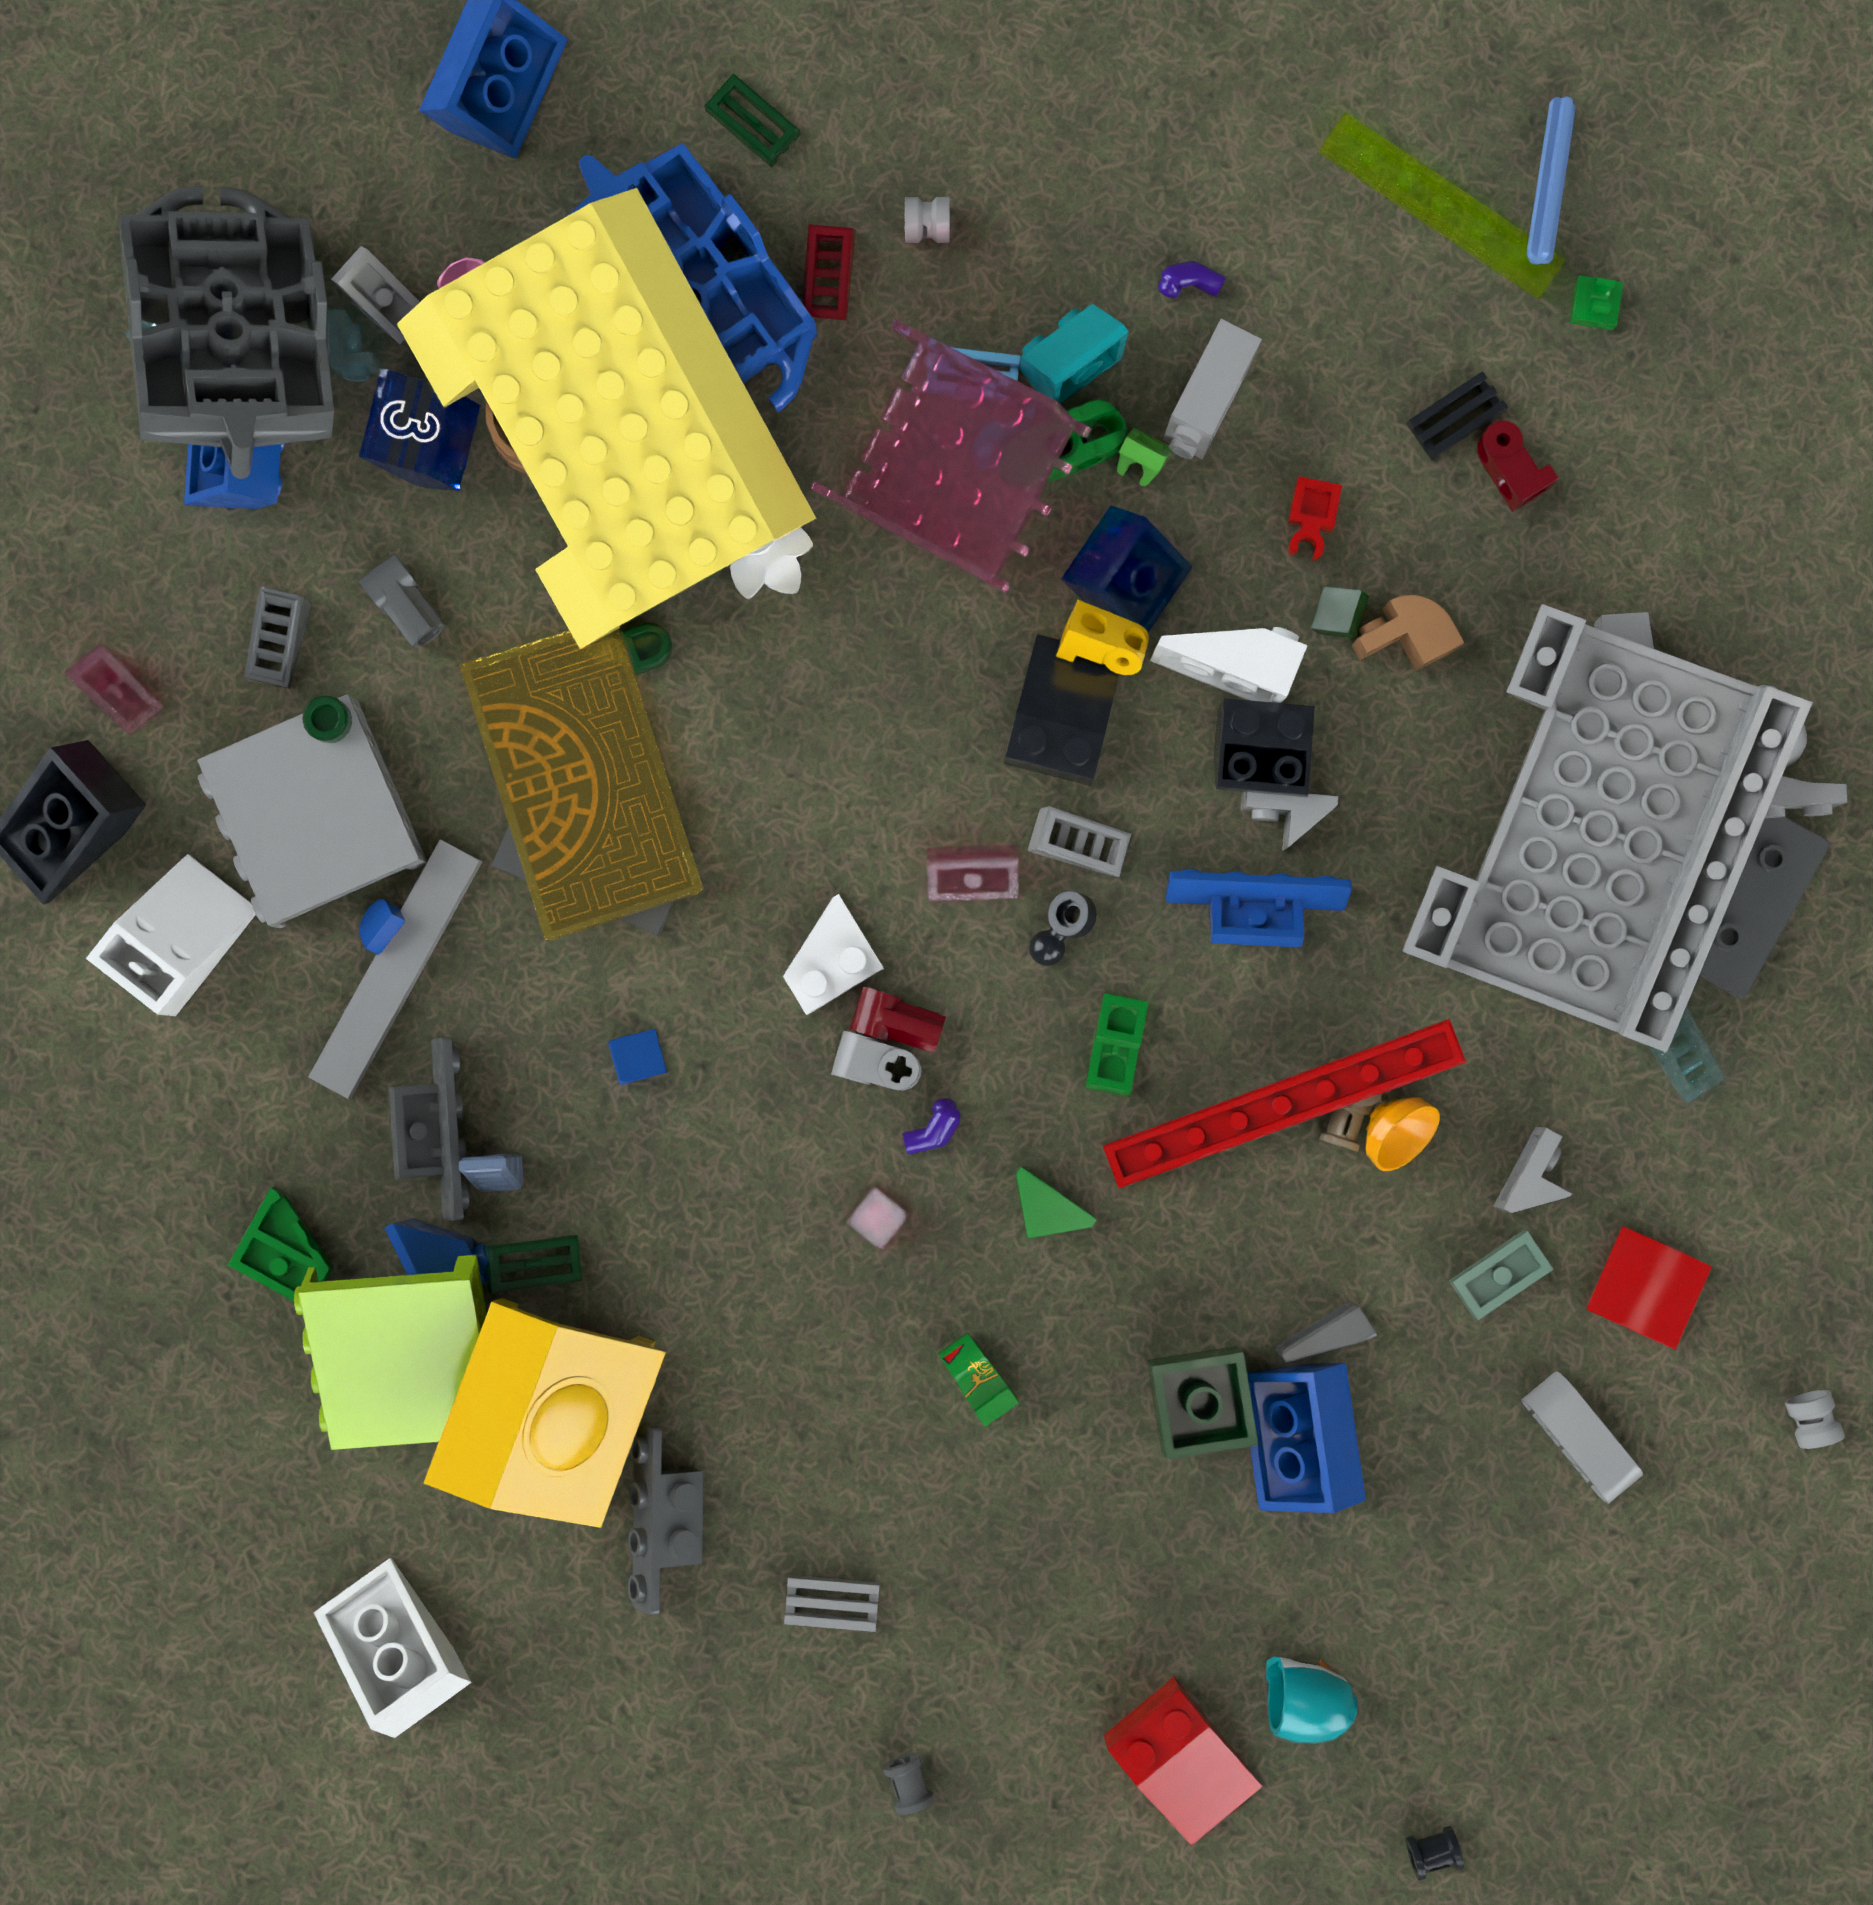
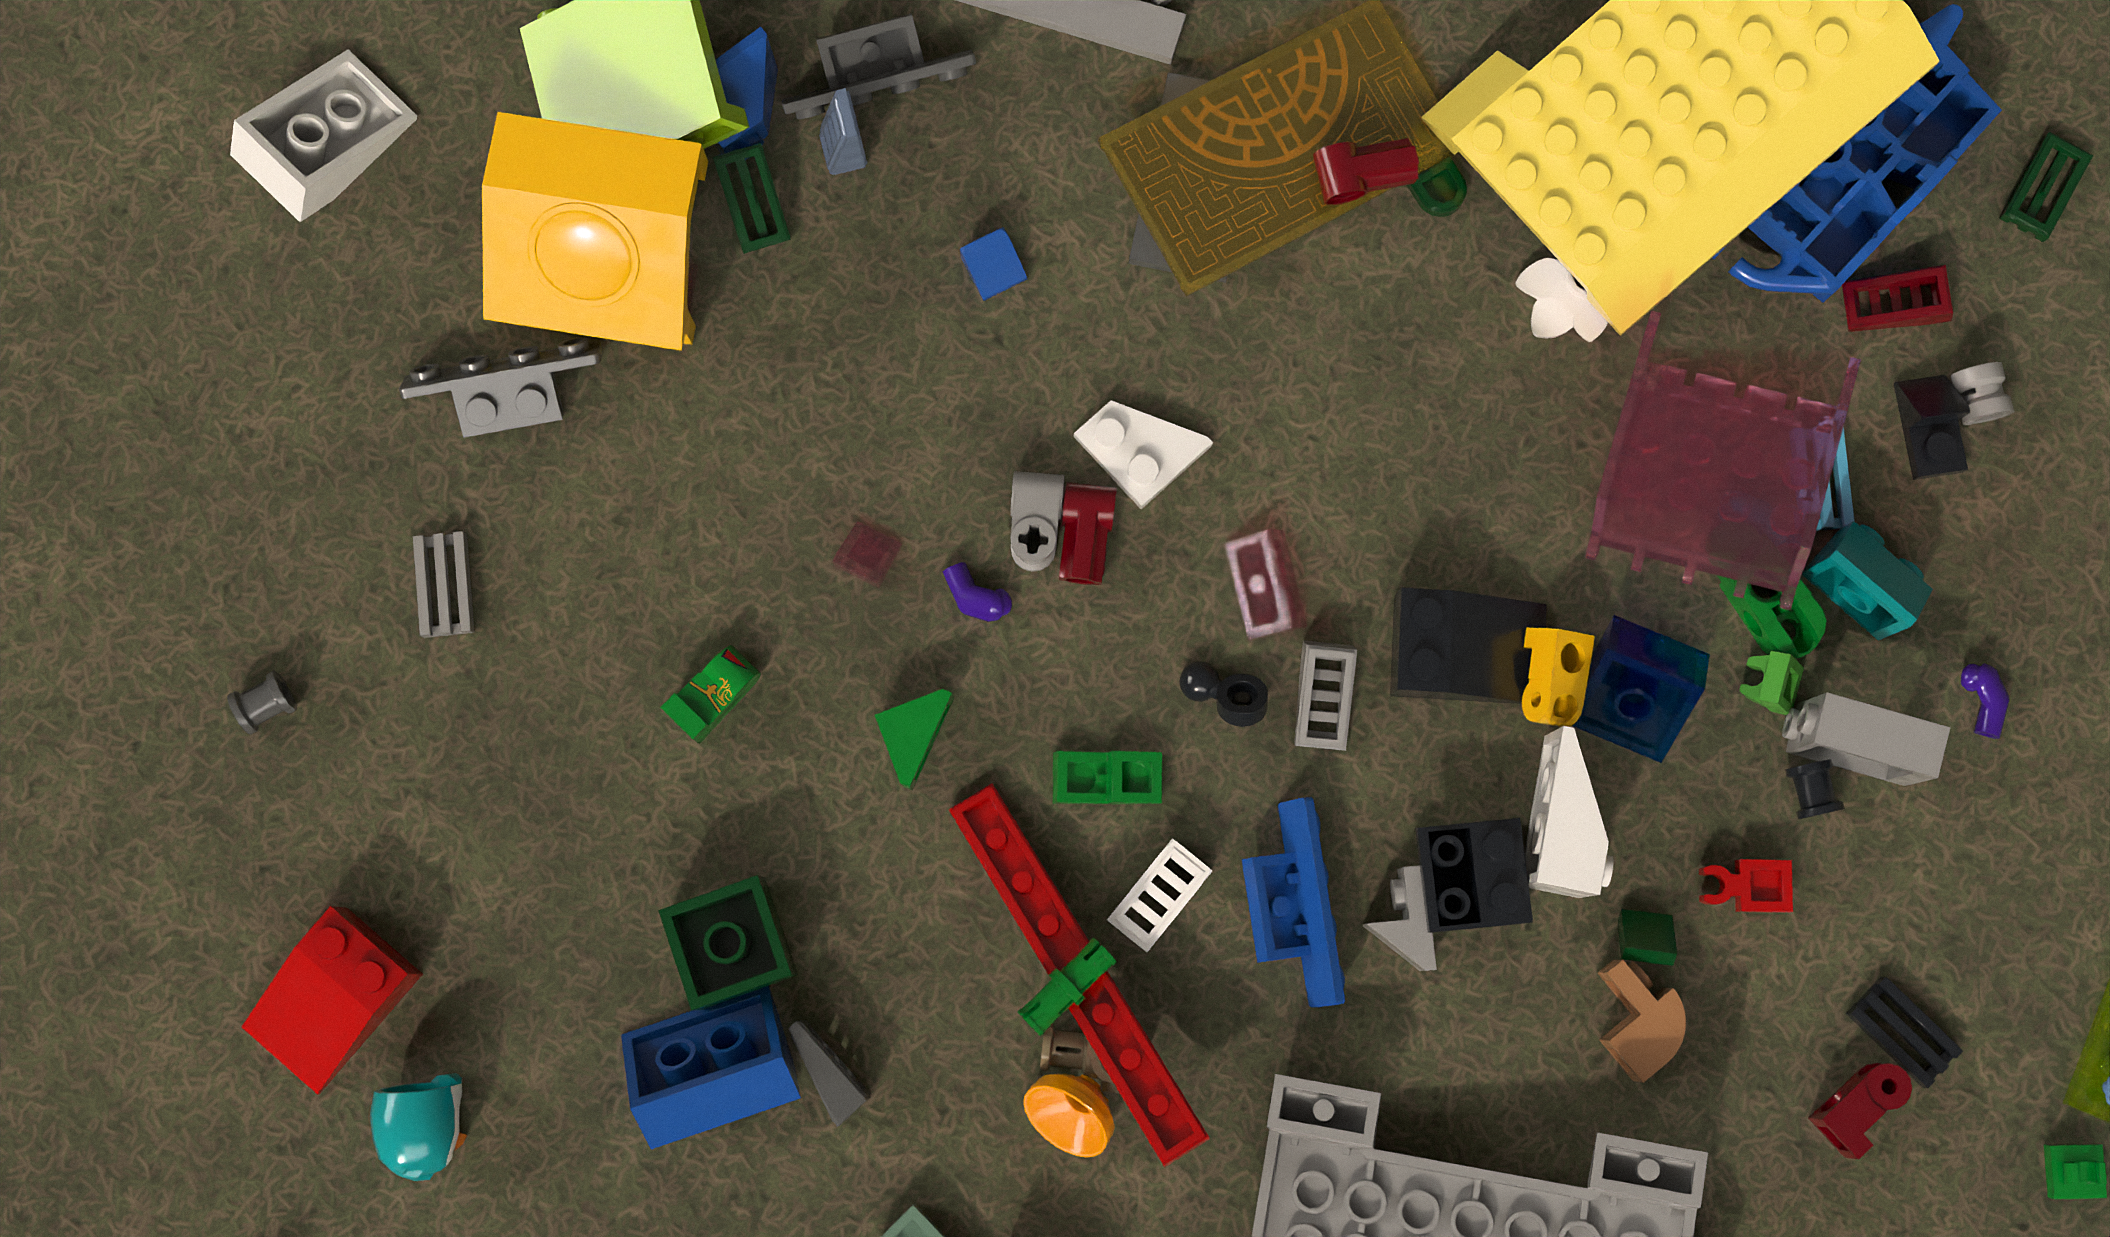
camera: 80 degrees right, 5 degrees down
(621, 721) = (1353, 171): none -> dark red piece
(944, 269) = (1931, 426): none -> black slope
(1205, 988) = (1186, 861): none -> white slope
(1241, 442) = (1814, 789): none -> black bush
(1299, 1115) = (1066, 986): none -> green pin

